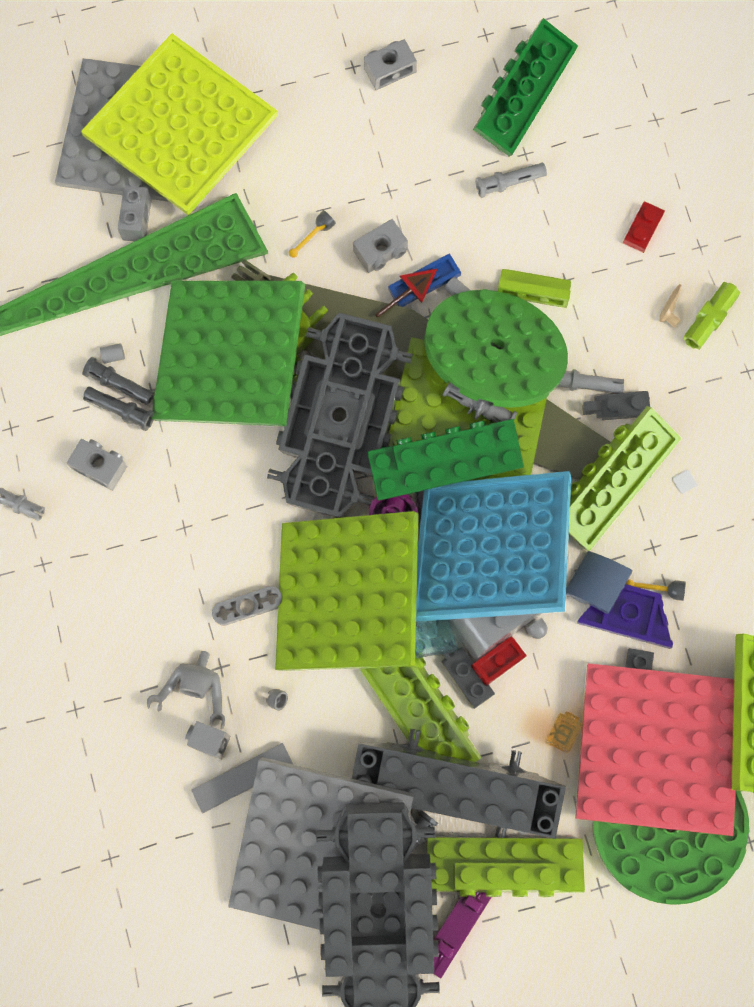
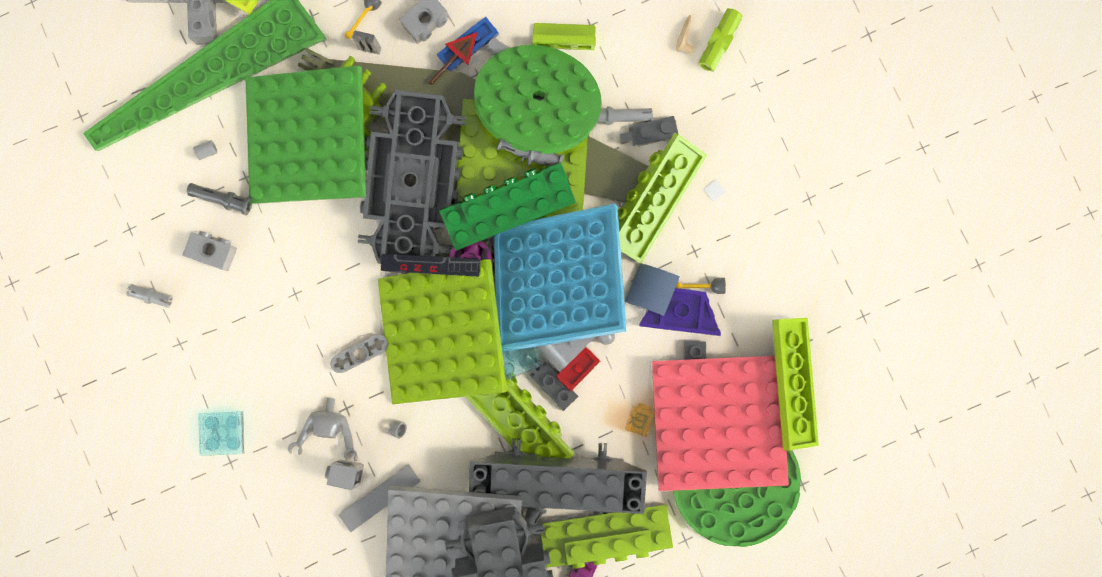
camera: 15 degrees left, 10 degrees up
(72, 672) = (221, 433): none -> clear light blue plate
(109, 377) = (205, 171): dark grey pin -> none
(308, 261) = (367, 41): none -> tile
(348, 510) = (430, 265): none -> black sticker

